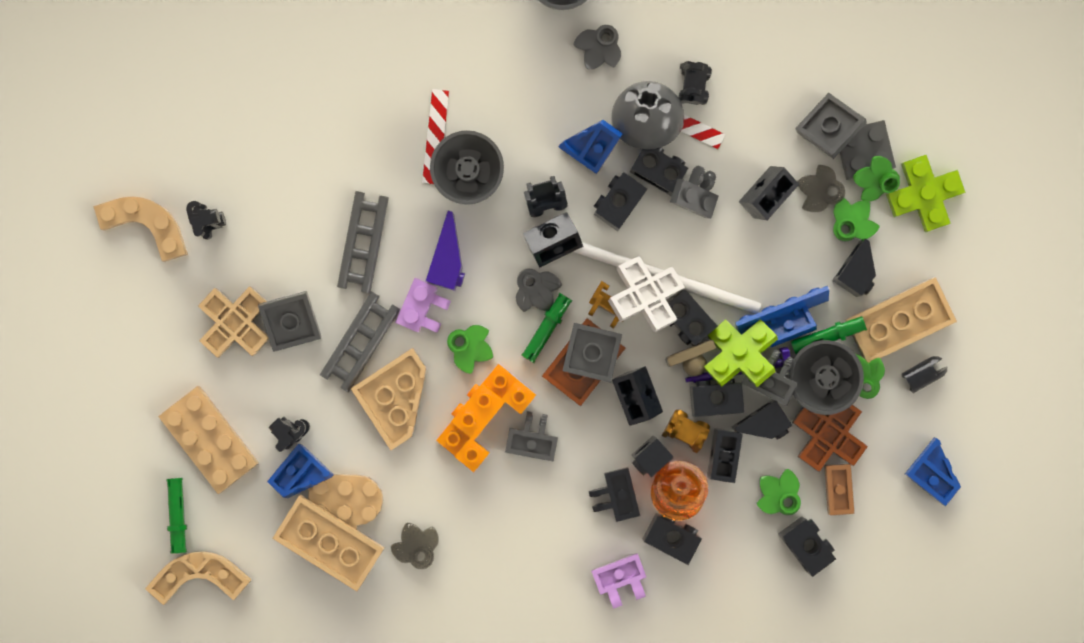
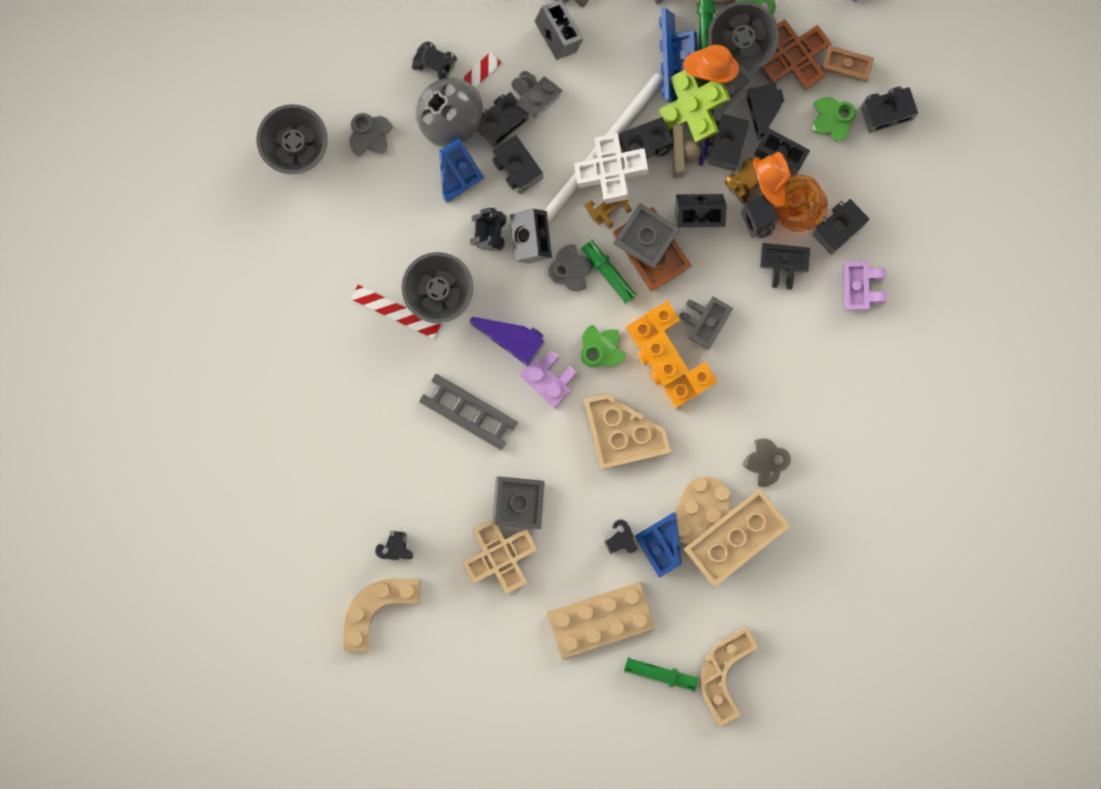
camera: 70 degrees left, 5 degrees down
(374, 336) = (575, 448): dark grey bar -> none
(693, 455) = (772, 177): none -> orange piece
(785, 356) = (712, 64): none -> orange piece

